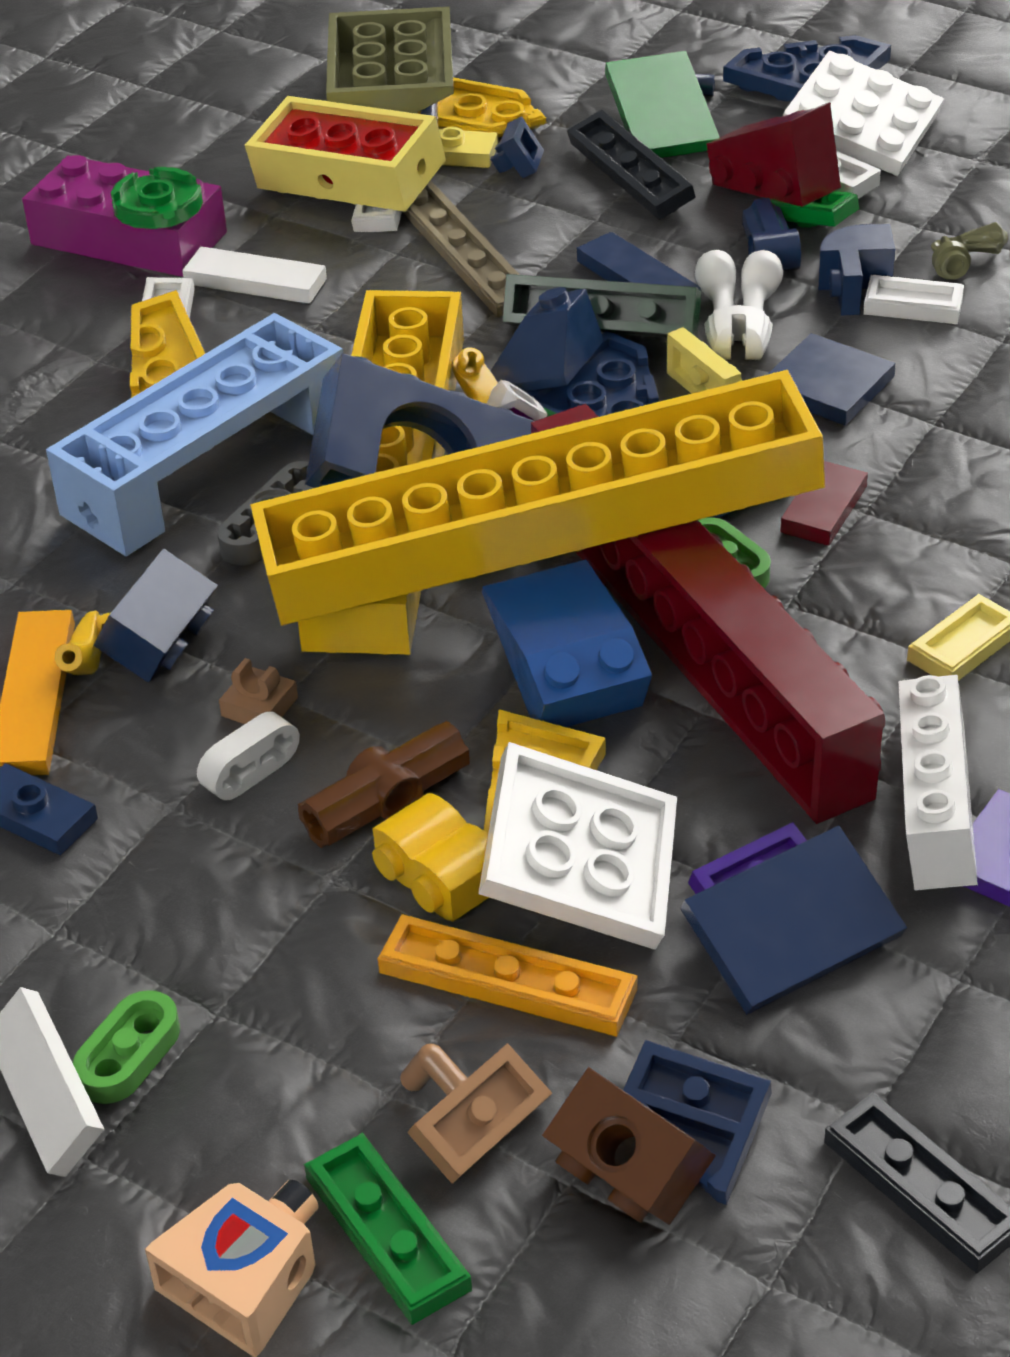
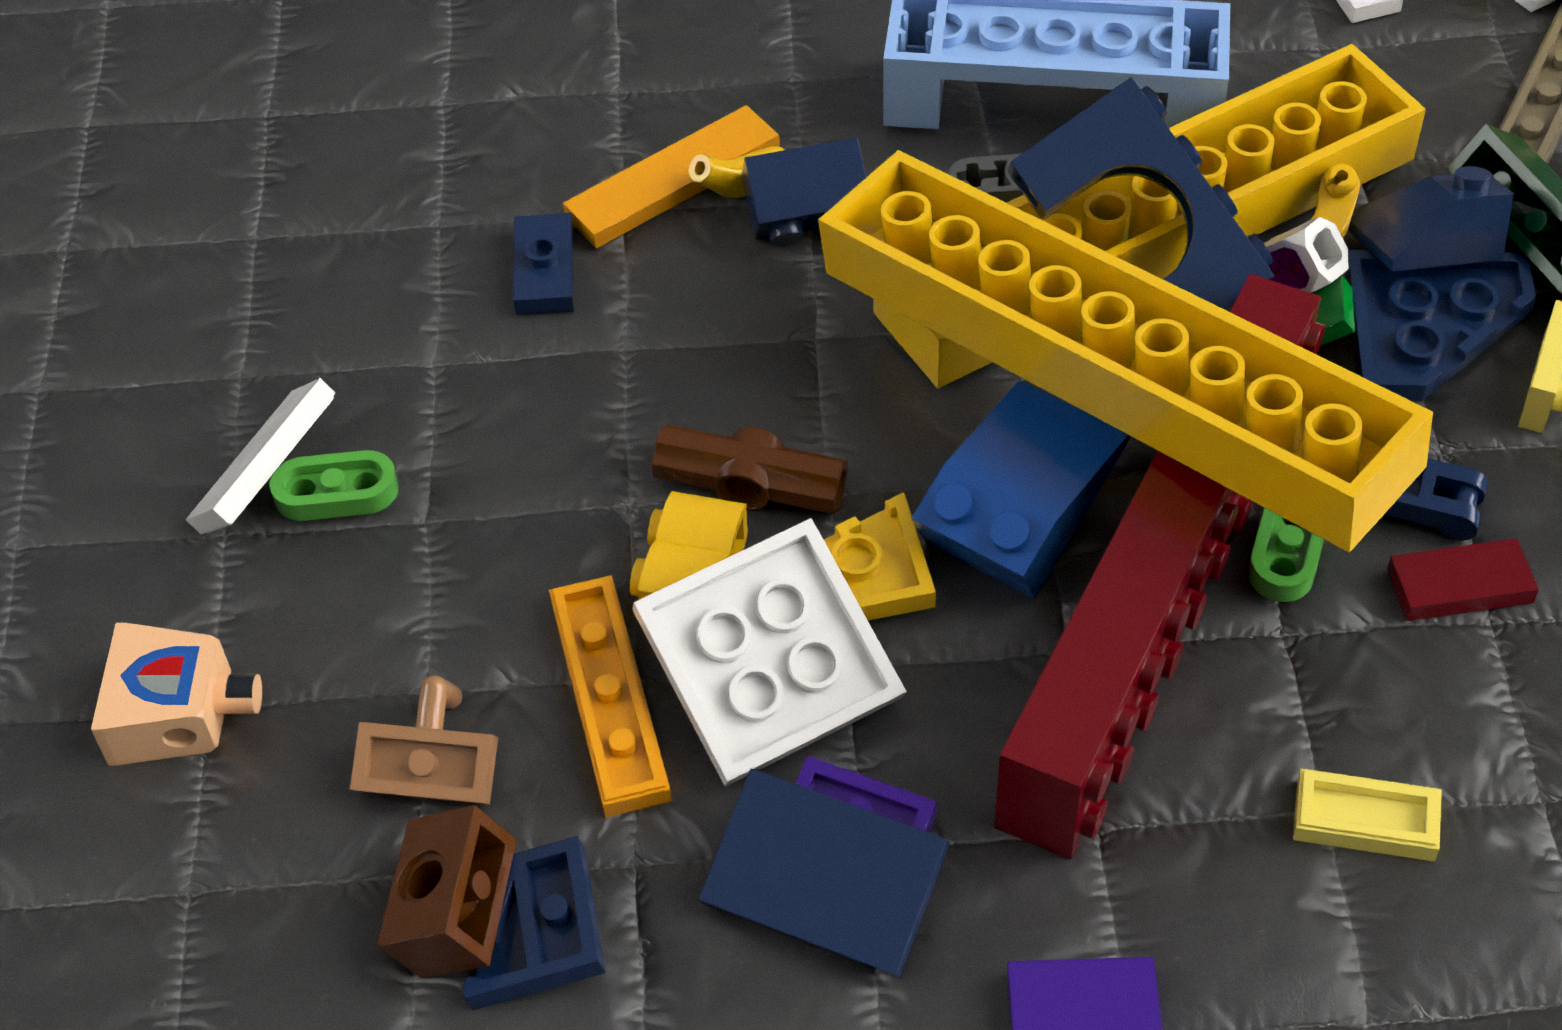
camera: 55 degrees right, 10 degrees up
(248, 755) = (705, 356): white beam -> none
(256, 692) = (790, 318): medium nougat tile -> none
(388, 1228) = (278, 774): green tile -> none
(936, 783) = (1090, 892): white brick -> none

